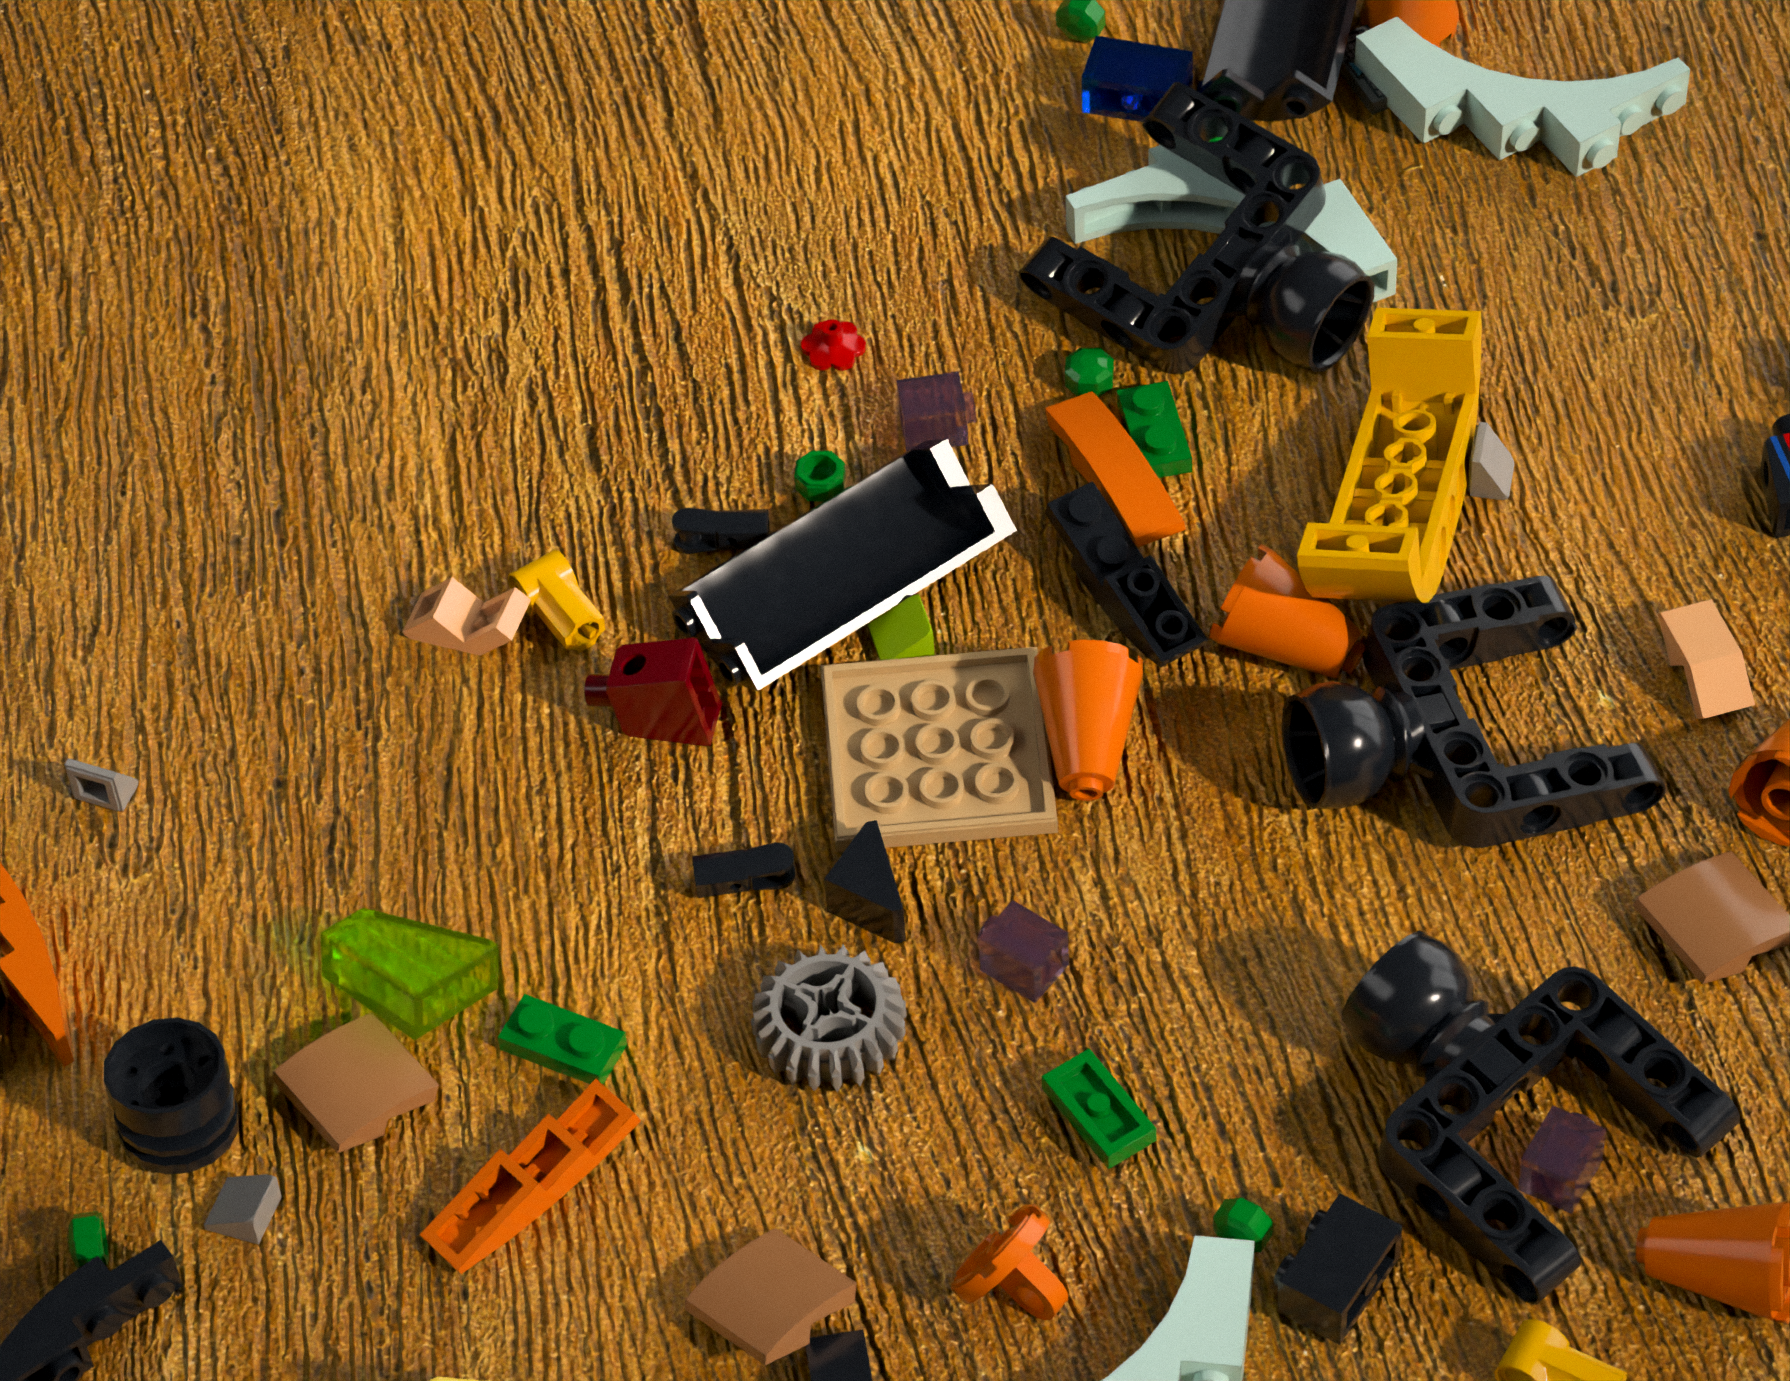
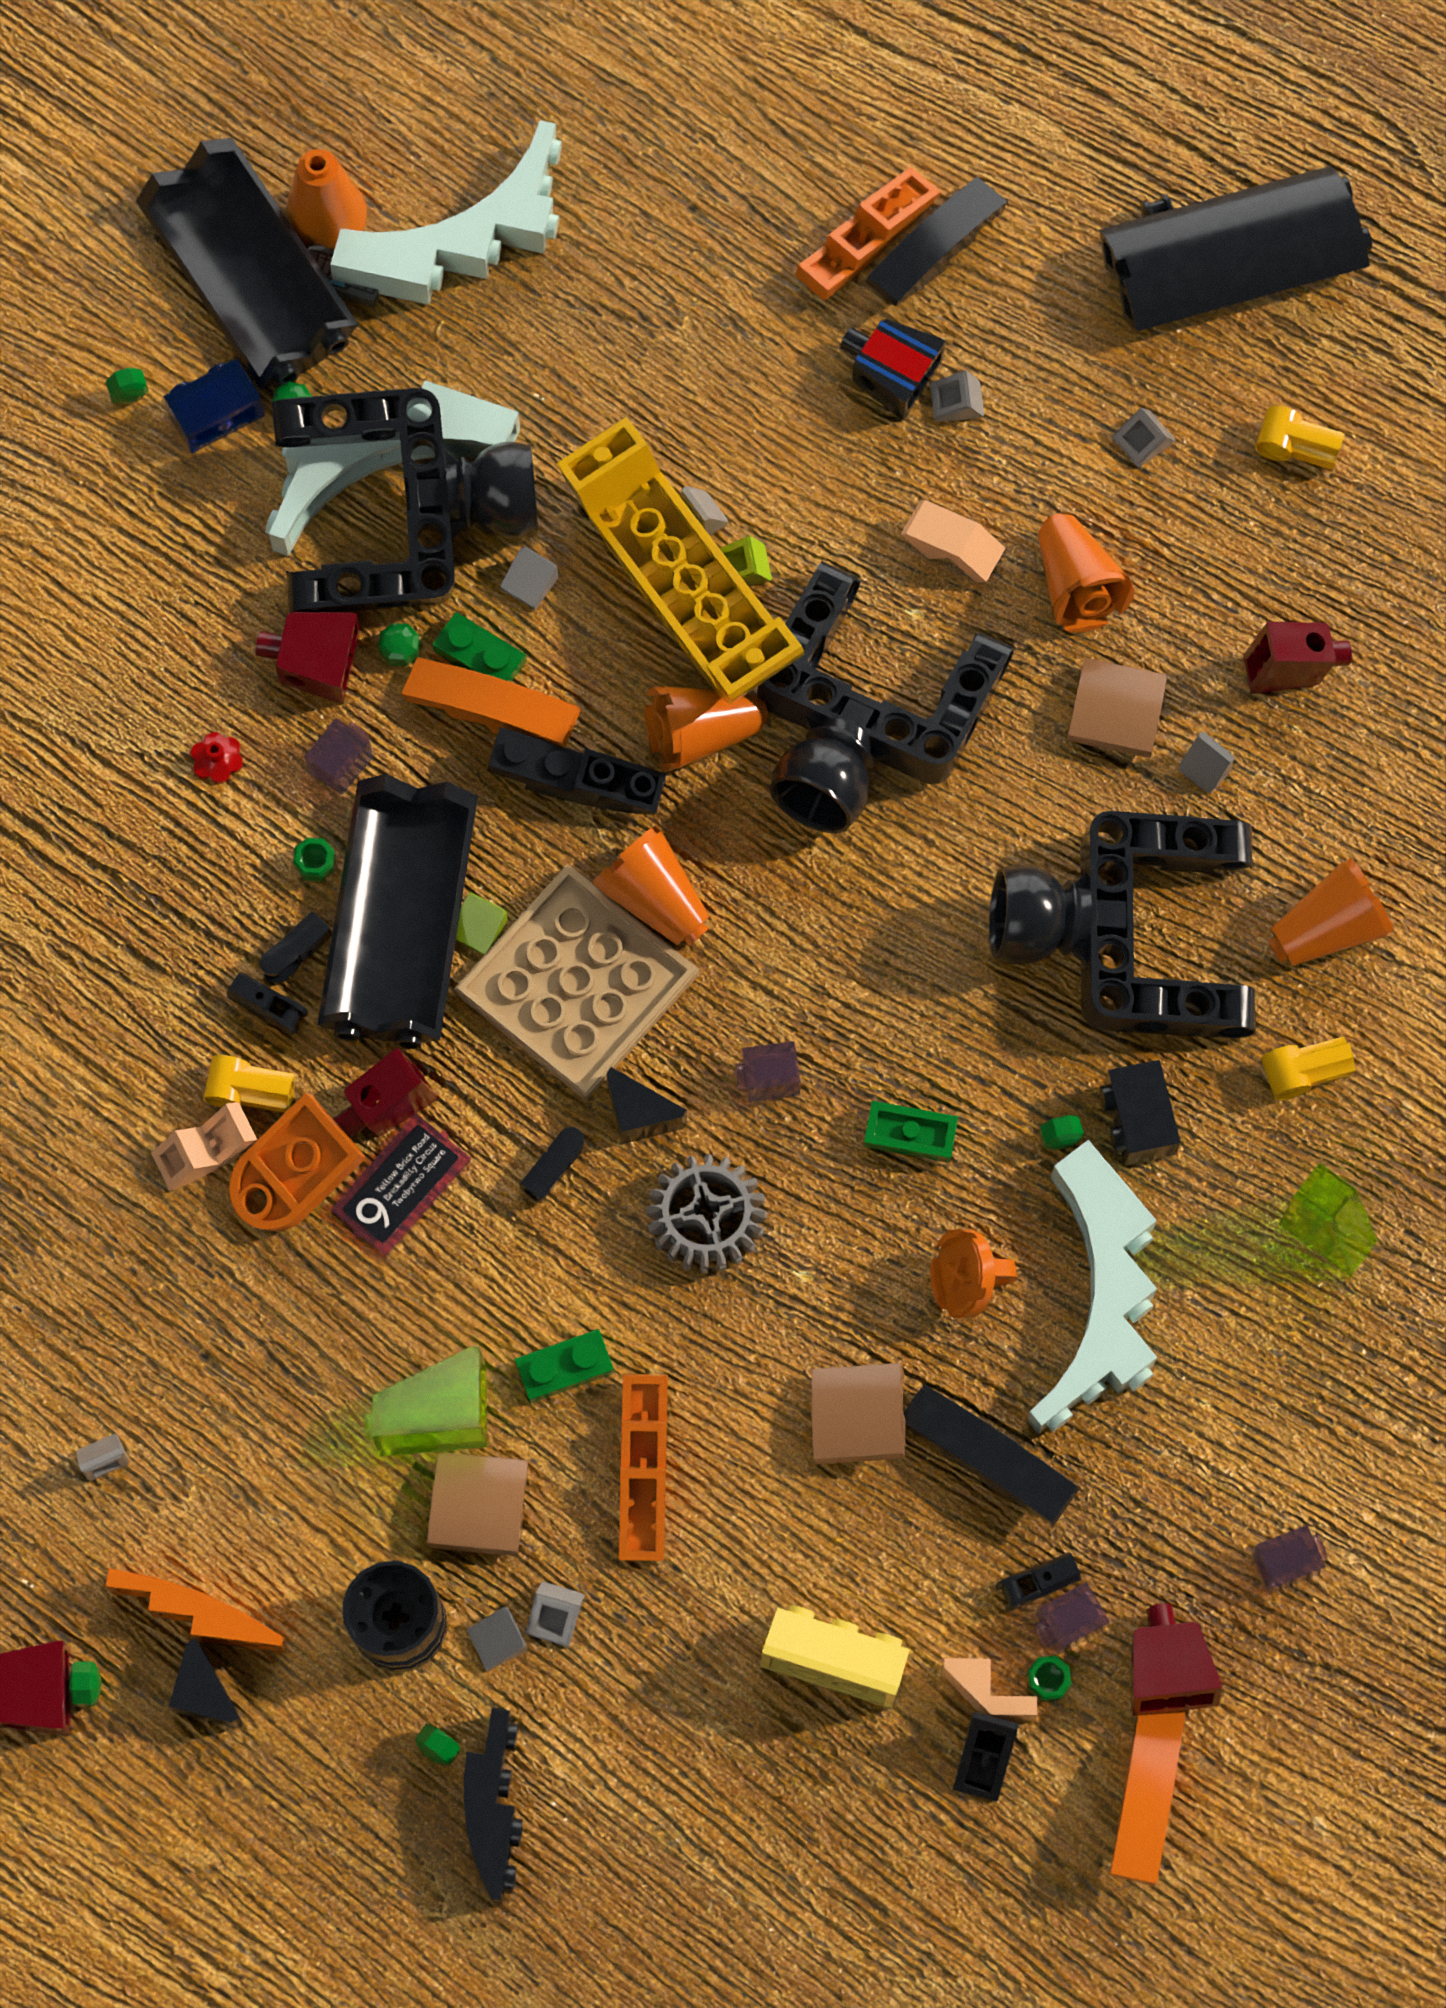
camera: 50 degrees left, 20 degrees up
(315, 1231) = (554, 1613): none -> light grey slope
(516, 685) = (294, 1165): none -> orange tile
(596, 785) = (401, 1184): none -> piece
(648, 550) = (263, 1000): none -> black bar
(1007, 321) = (314, 652): none -> dark red torso
(1266, 405) = (529, 578): none -> light grey slope
(1485, 538) = (749, 560): none -> lime slope
(1562, 1159) = (1185, 935): brick -> none
(1756, 1032) = (1206, 763): none -> light grey slope

